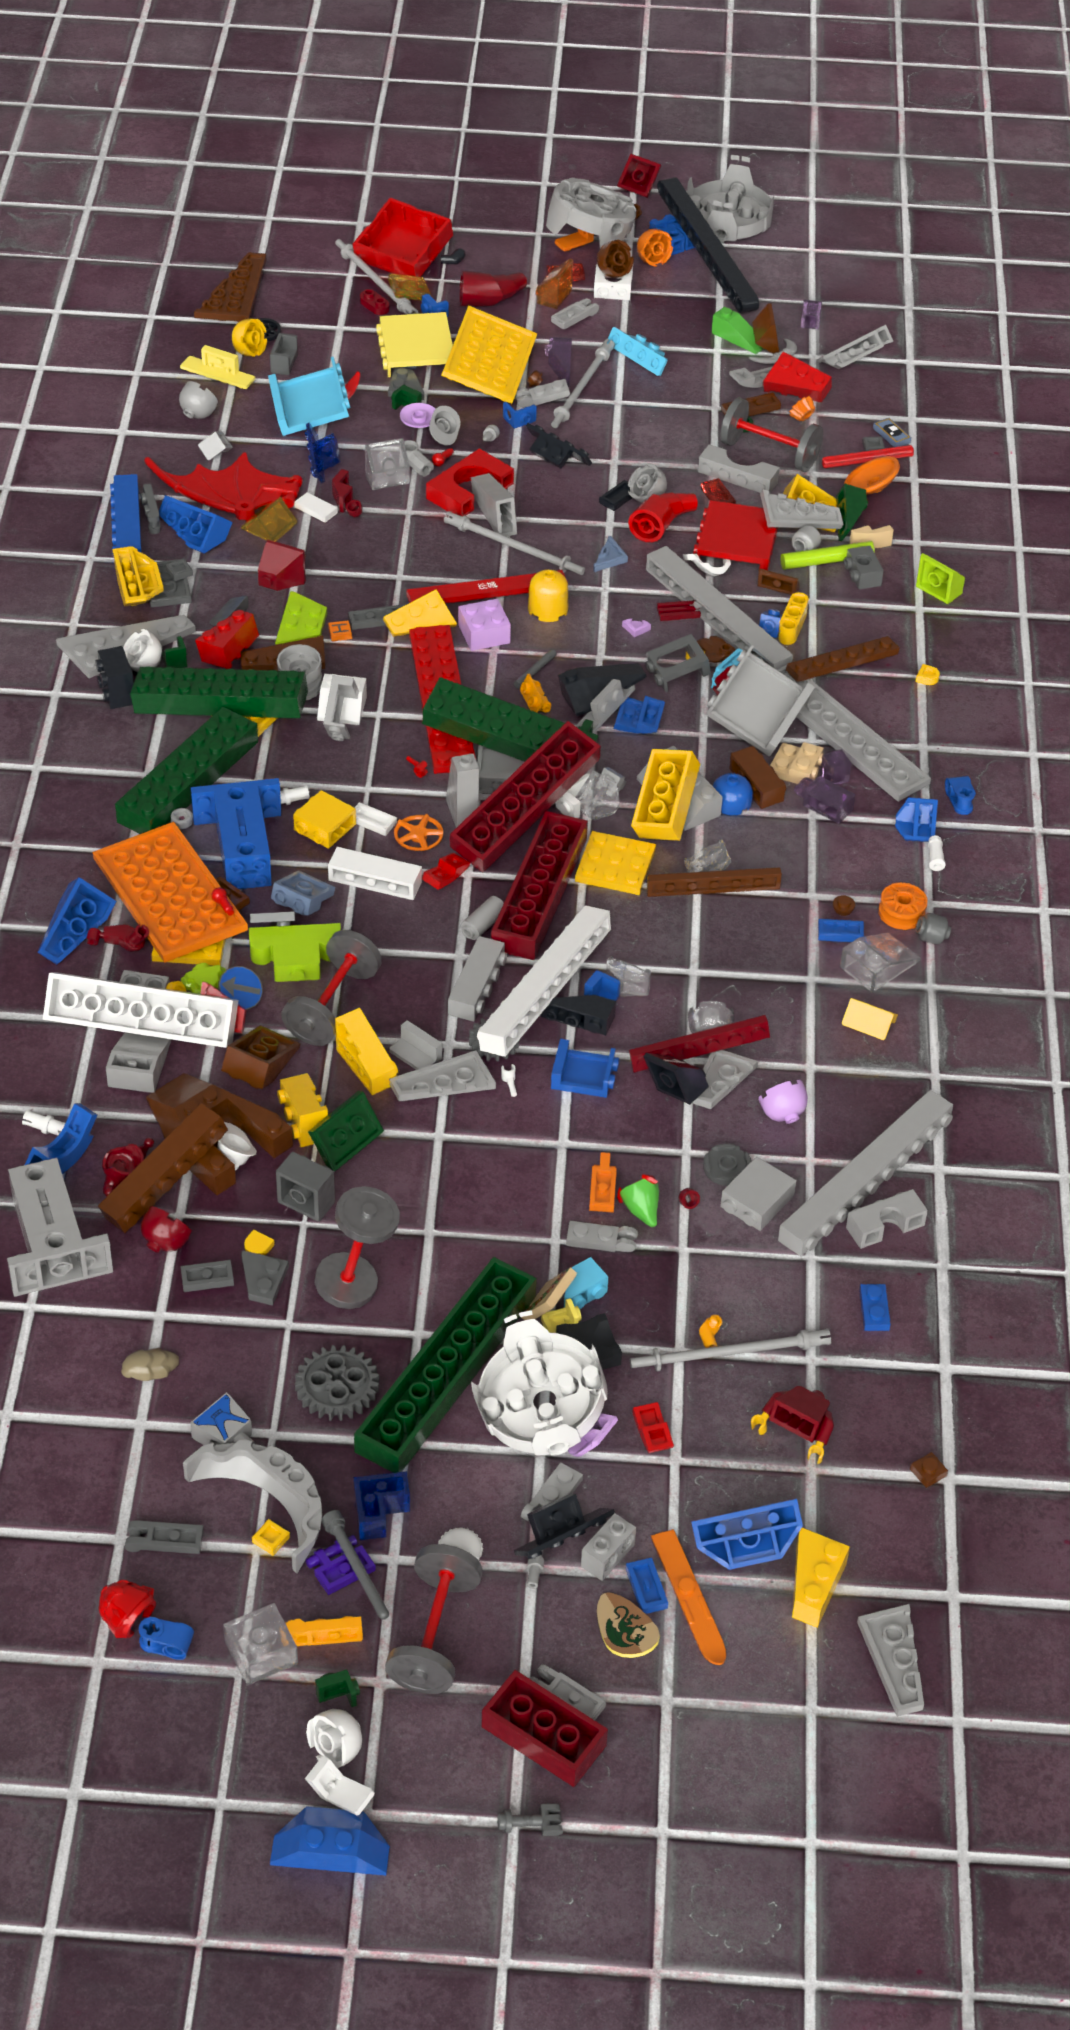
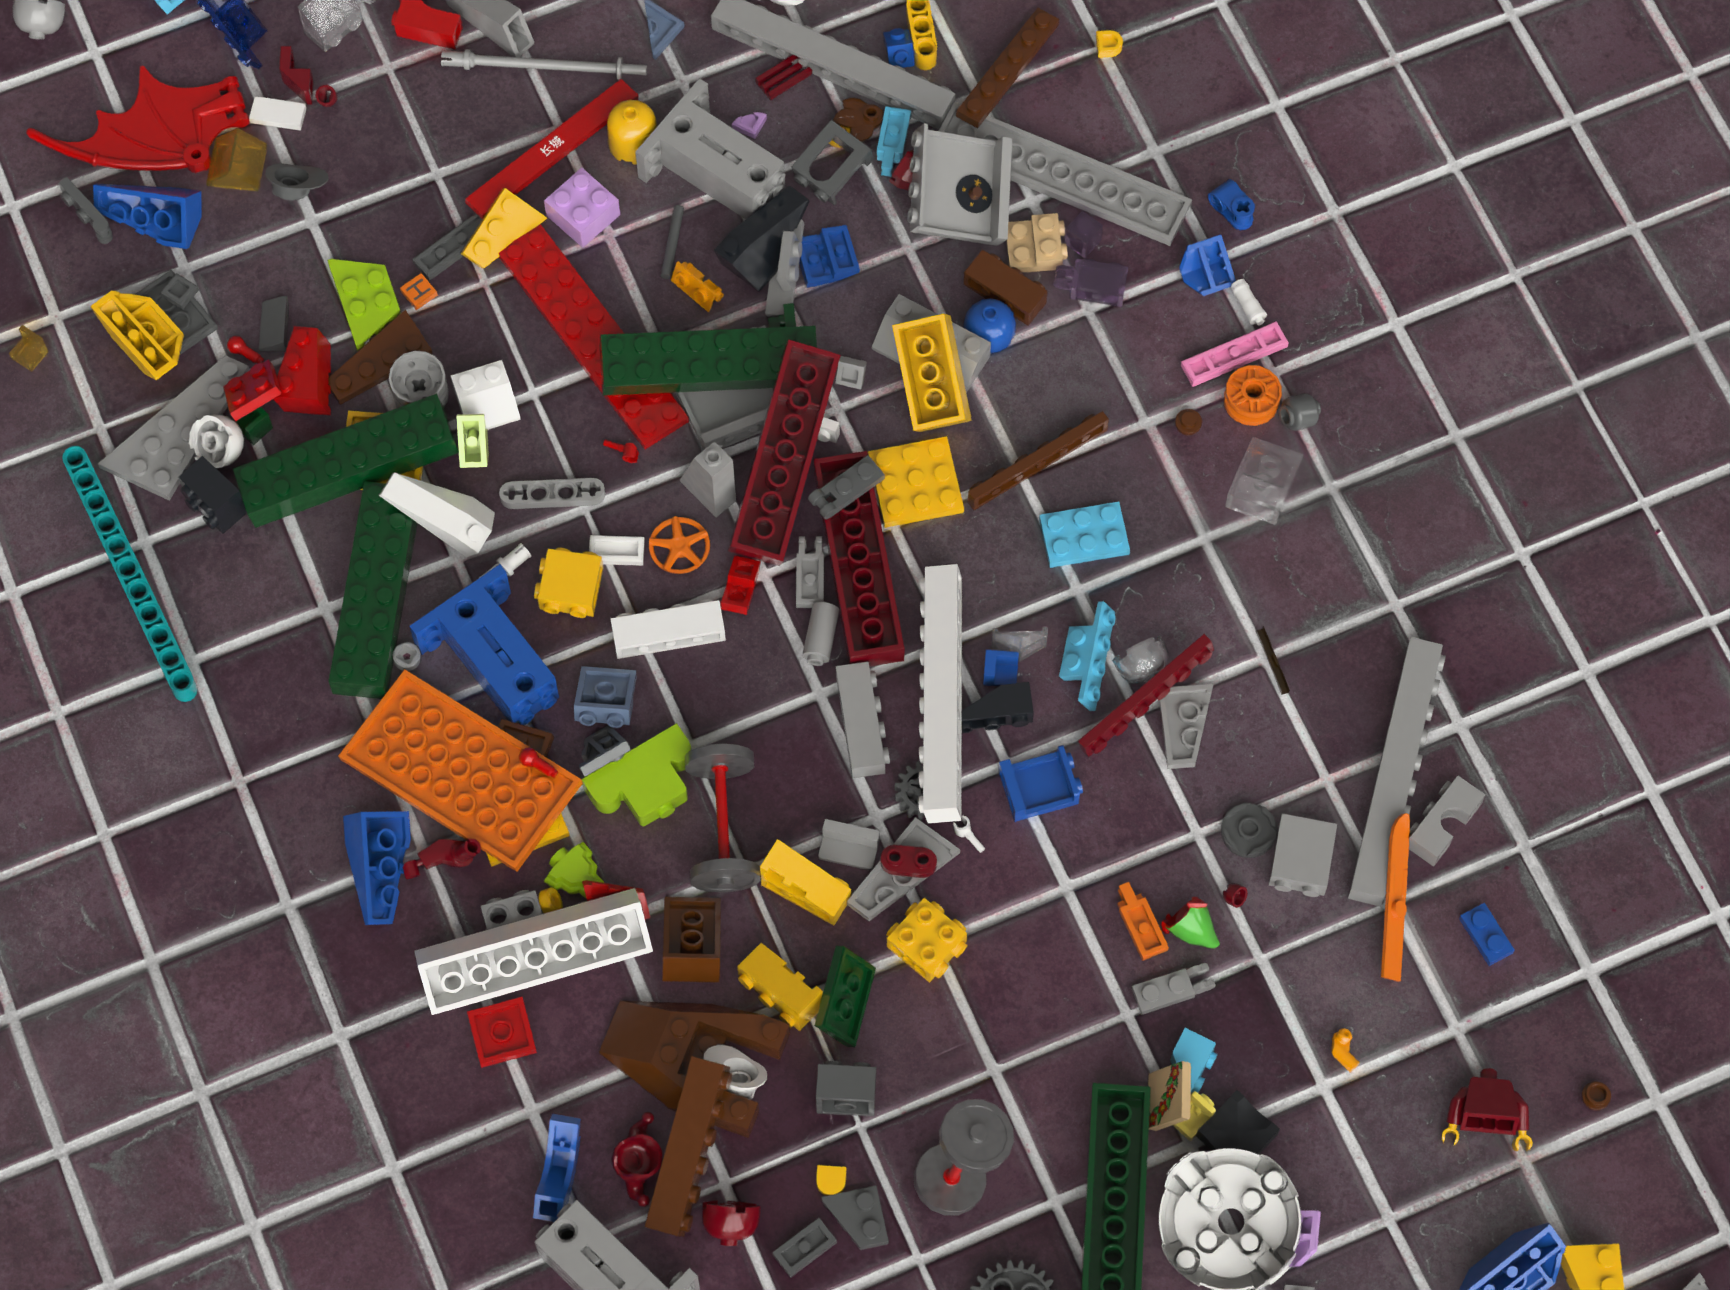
camera: 25 degrees left, 20 degrees up
(30, 703) = (132, 583): none -> teal beam
(46, 1124) = (518, 1144): white pin -> none
(59, 565) = (29, 349): none -> clear yellow panel
(85, 1054) = (501, 1032): none -> red plate
(125, 512) = (65, 237): blue brick -> none
(137, 1062) = (566, 1015): light grey slope -> none
(178, 630) = (252, 389): none -> red plate
(196, 613) = (238, 346): none -> red piece
(215, 445) = (101, 73): panel -> none
(241, 985) = (617, 860): blue piece -> none
(266, 748) = (447, 514): none -> white wedge
(281, 566) = (300, 234): dark red slope -> none
(298, 539) = (294, 181): none -> dark grey piece
(313, 711) = (472, 440): none -> yellowish green slope
(339, 688) = (488, 397): light grey panel -> none
(373, 778) = (552, 498): none -> light grey beam
(433, 1127) = (927, 939): none -> yellow brick
(449, 1071) = (908, 862): none -> dark red plate
(499, 882) = (809, 574): none -> light grey hinge
(557, 833) = (847, 487): none -> dark grey plate
(590, 622) = (711, 156): none -> light grey brick
(598, 797) = (850, 401): clear slope -> none
(652, 1427) = (1349, 1195): red slope -> none
(673, 1007) = (1087, 653): none -> medium azure bracket
(676, 1077) = (1148, 751): black slope -> none
(711, 858) = (1015, 433): clear slope -> none
(720, 940) = (1084, 534): none -> medium azure plate
(768, 713) = (974, 193): none -> piece
(785, 1101) = (1271, 725): lavender cylinder -> none
(802, 1340) = (1440, 1012): light grey bar -> none
(812, 1249) = (1396, 899): none -> orange piece
(815, 1072) = (1273, 662): none -> dark brown piece
(840, 930) = (1204, 460): blue plate -> none
(868, 1018) = (1294, 565): yellow panel -> none
(898, 1449) = (1596, 1095): none -> reddish brown plate
(923, 878) = (1234, 354): none -> bright pink plate
(929, 1470) = (1636, 1103): reddish brown plate -> none

